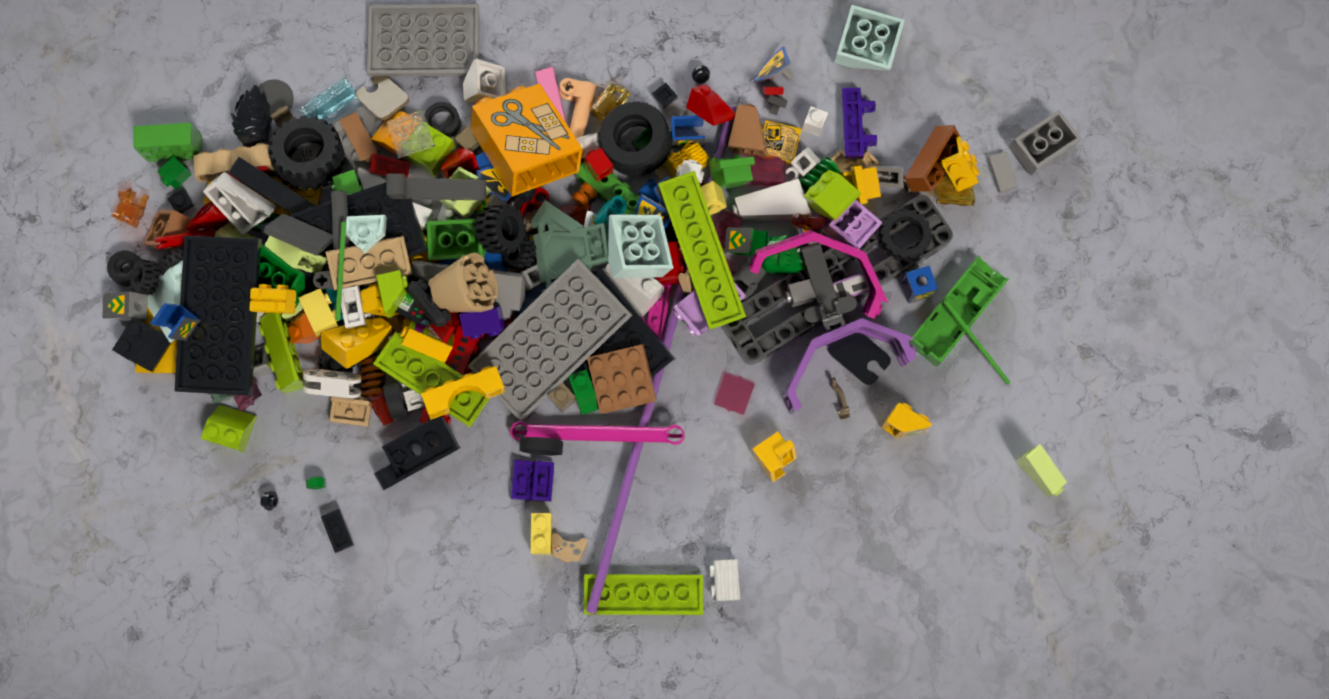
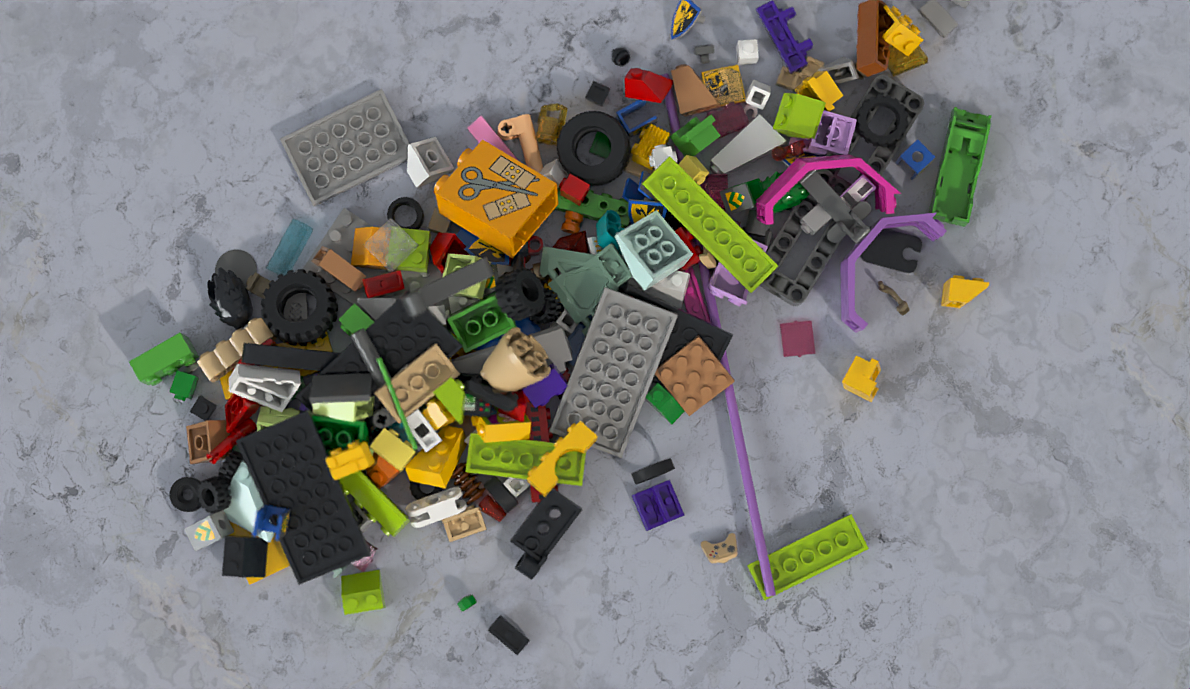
camera: 25 degrees left, 5 degrees up
(133, 211) = (158, 439): clear orange animal -> none
(269, 500) = (433, 638): black plate -> none
(365, 230) = (401, 355): light aqua plate -> none
(385, 100) = (344, 222): piece -> none
(541, 533) = (692, 548): light yellow brick -> none
(562, 397) = (647, 418): dark tan brick -> none
(599, 433) = (696, 434): dark pink piece -> none
(725, 580) = (873, 509): white brick -> none
(777, 90) = (695, 41): red tile -> none
(815, 174) = (774, 100): green piece -> none
(976, 341) = (988, 186): bright green axle -> none
(1042, 471) = (1102, 276): yellowish green slope -> none

